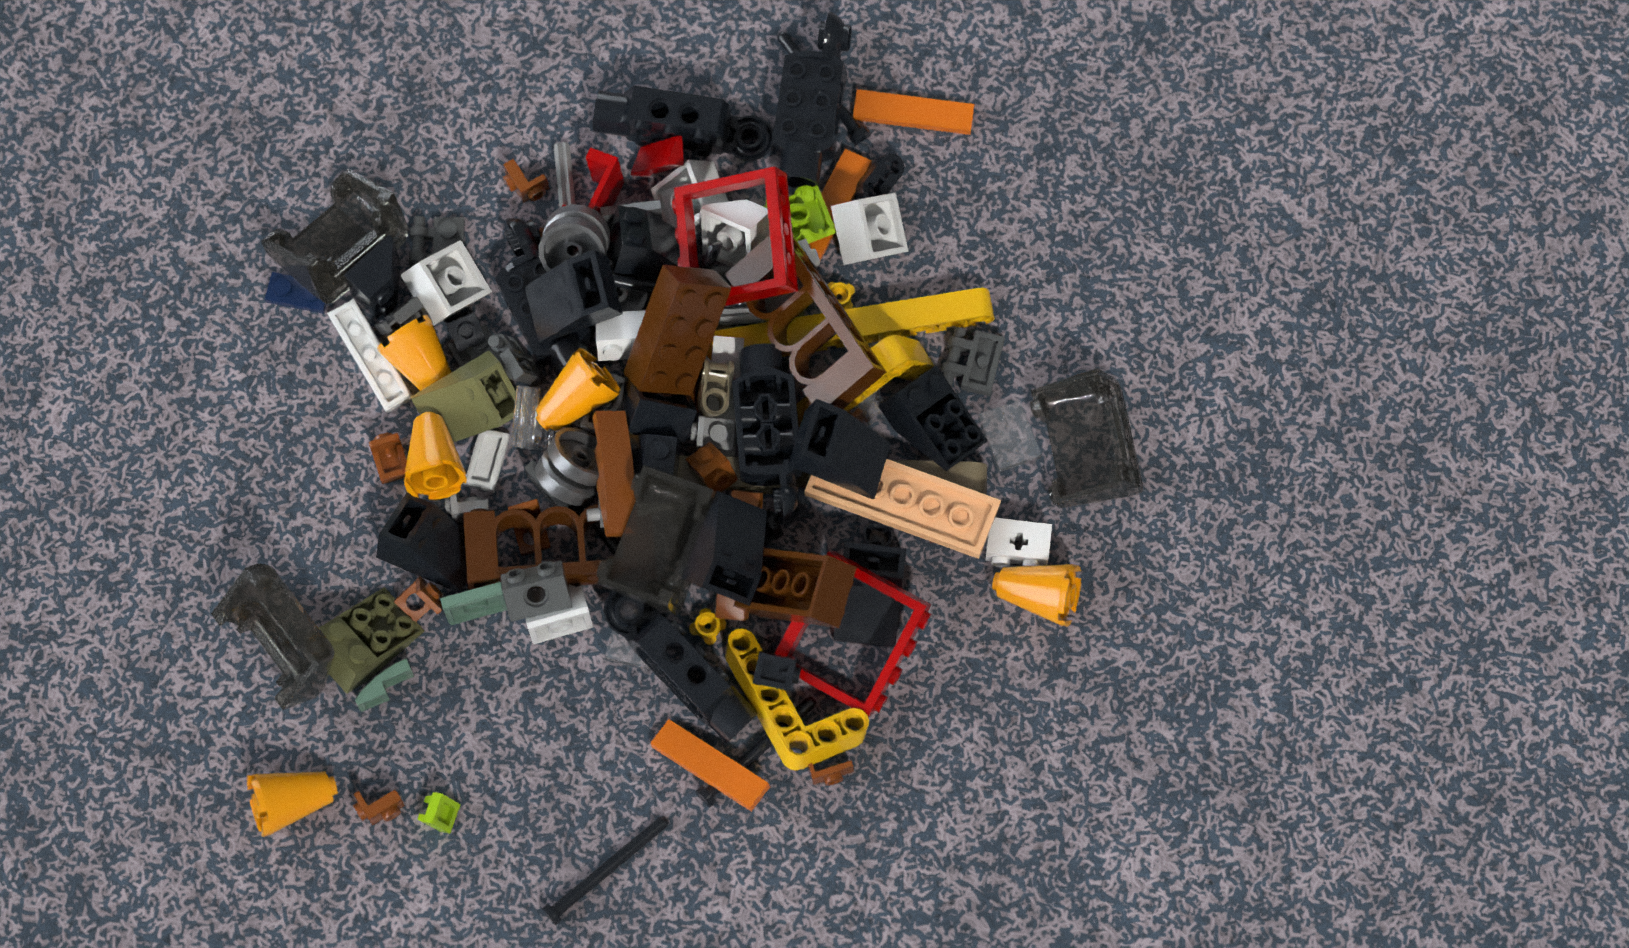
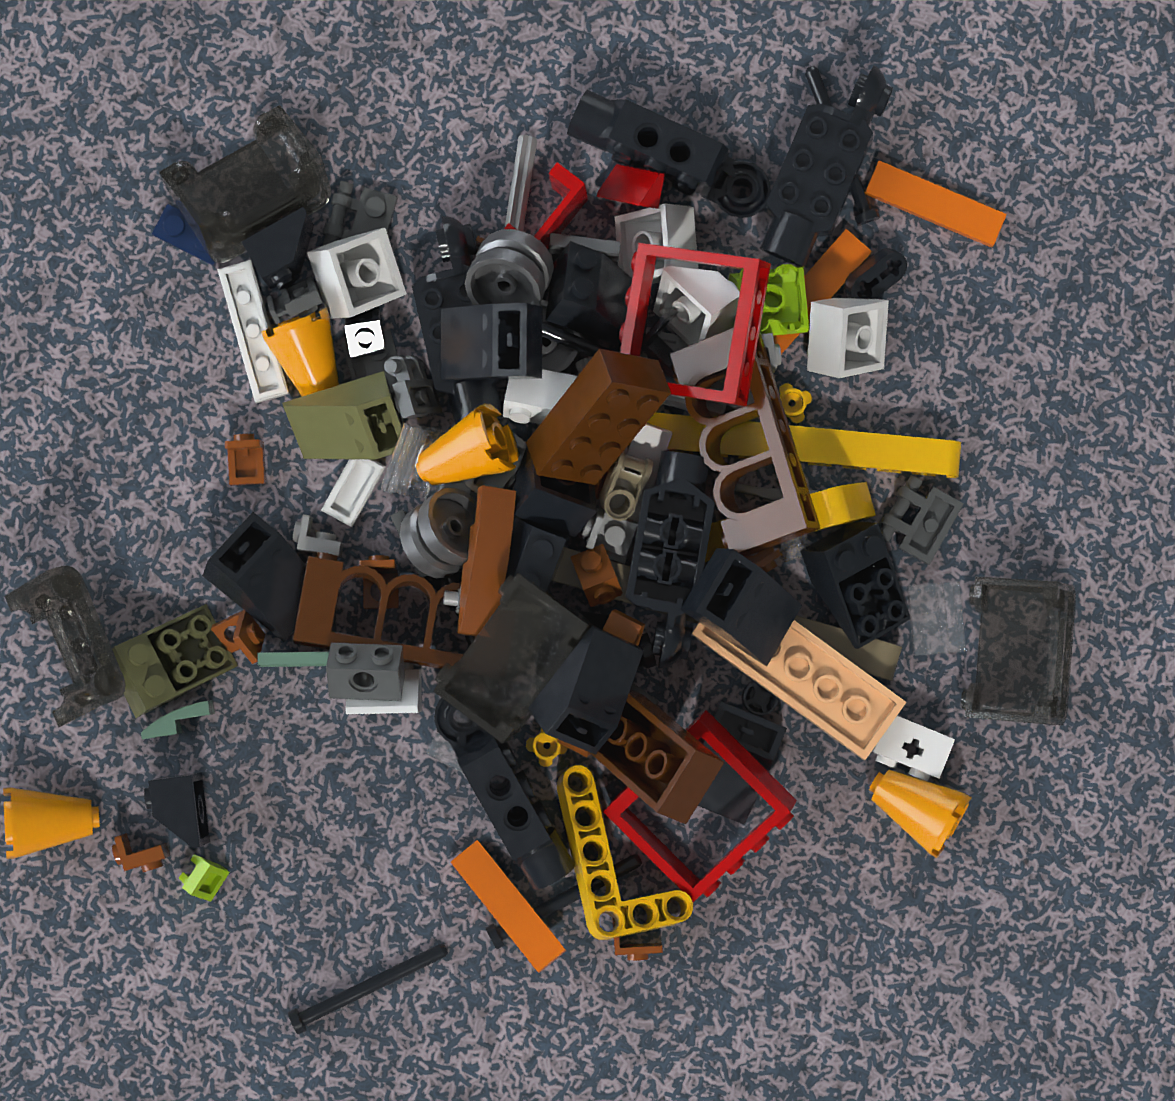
camera: 10 degrees right, 15 degrees up
(402, 750) = (180, 806): none -> black slope
(432, 460) = (290, 481): light orange cone -> none
(517, 181) = (465, 169): dark orange bracket -> none
(776, 671) = (606, 832): black bracket -> none

